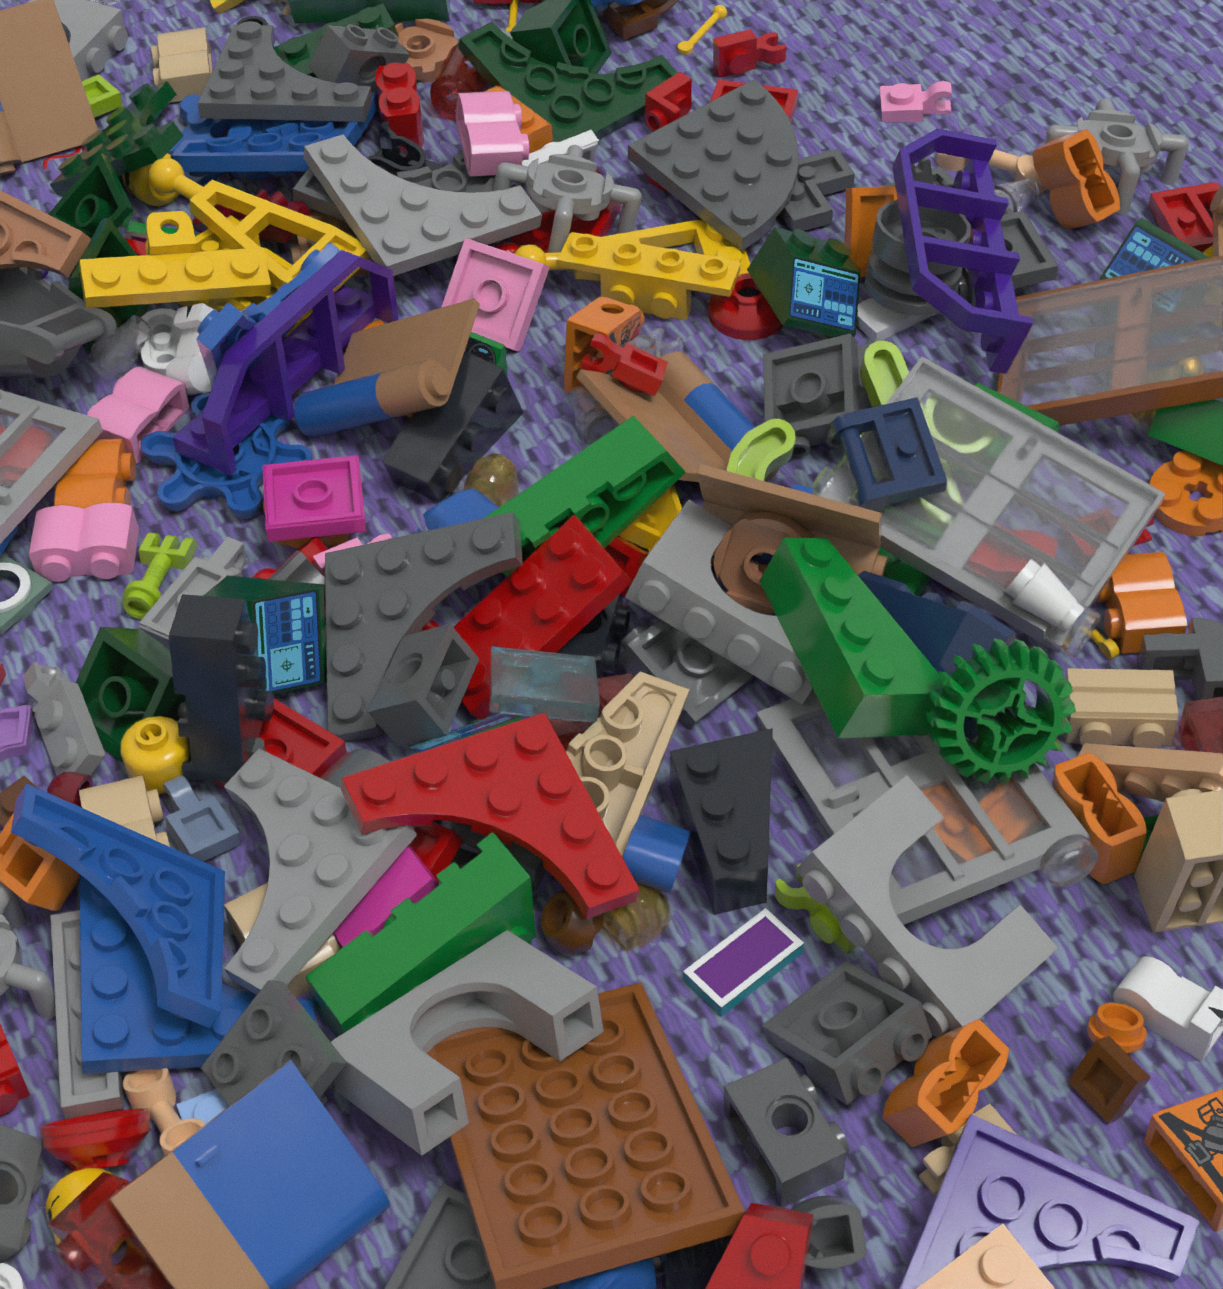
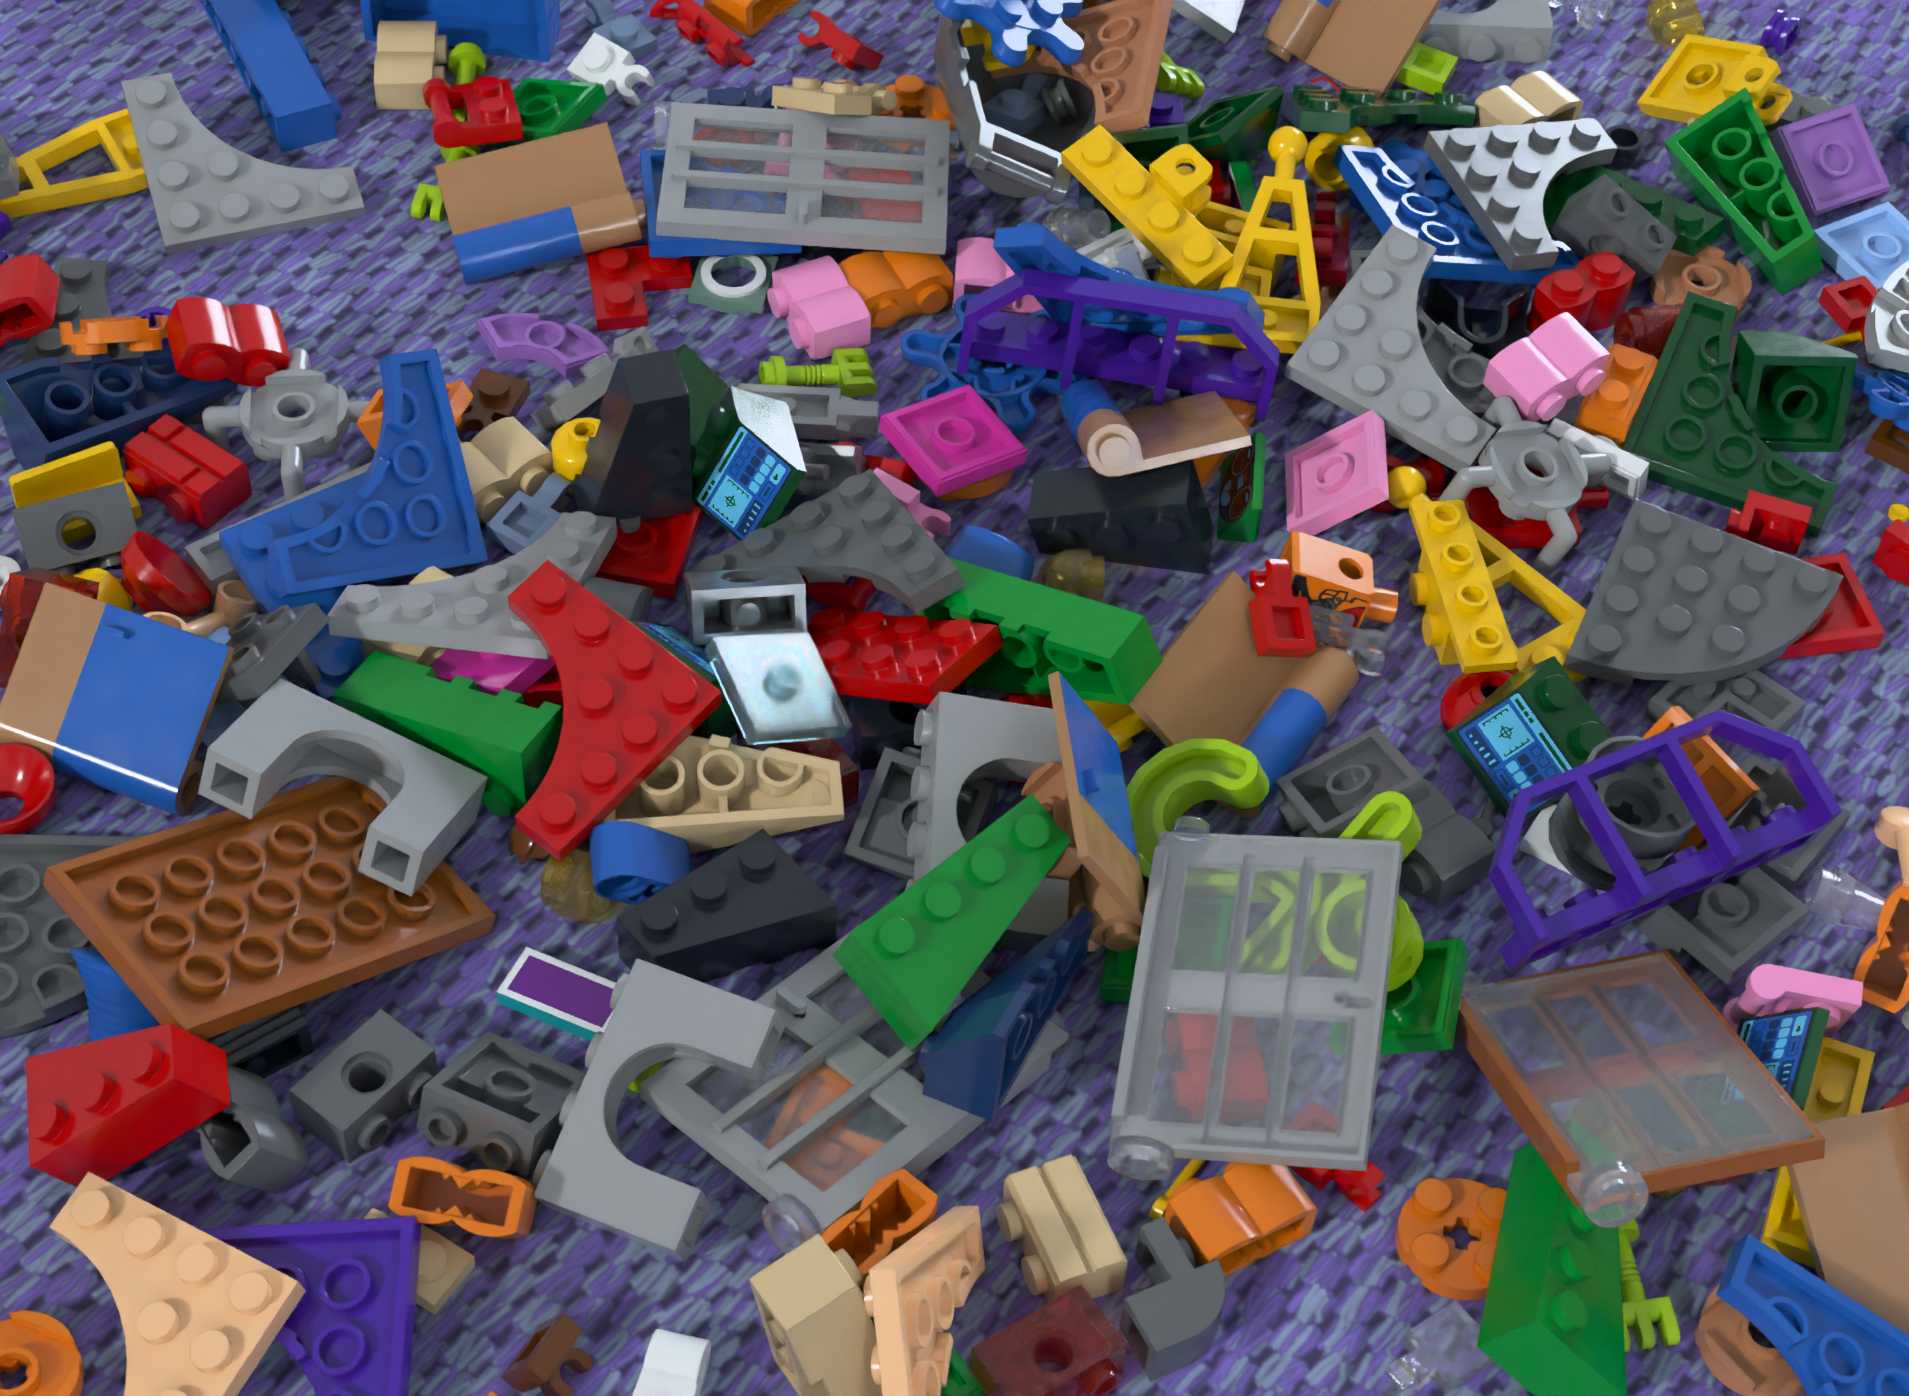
camera: 60 degrees right, 0 degrees up
(68, 785) = (523, 410): dark red hinge -> none
(904, 448) = (1252, 875): dark blue plate -> none
(984, 688) = (920, 1077): green gear -> none
(1044, 596) = (1144, 1087): white cone -> none
(1103, 239) = (1785, 989): none -> bright pink plate
(1119, 1022) = (614, 1349): orange plate -> none

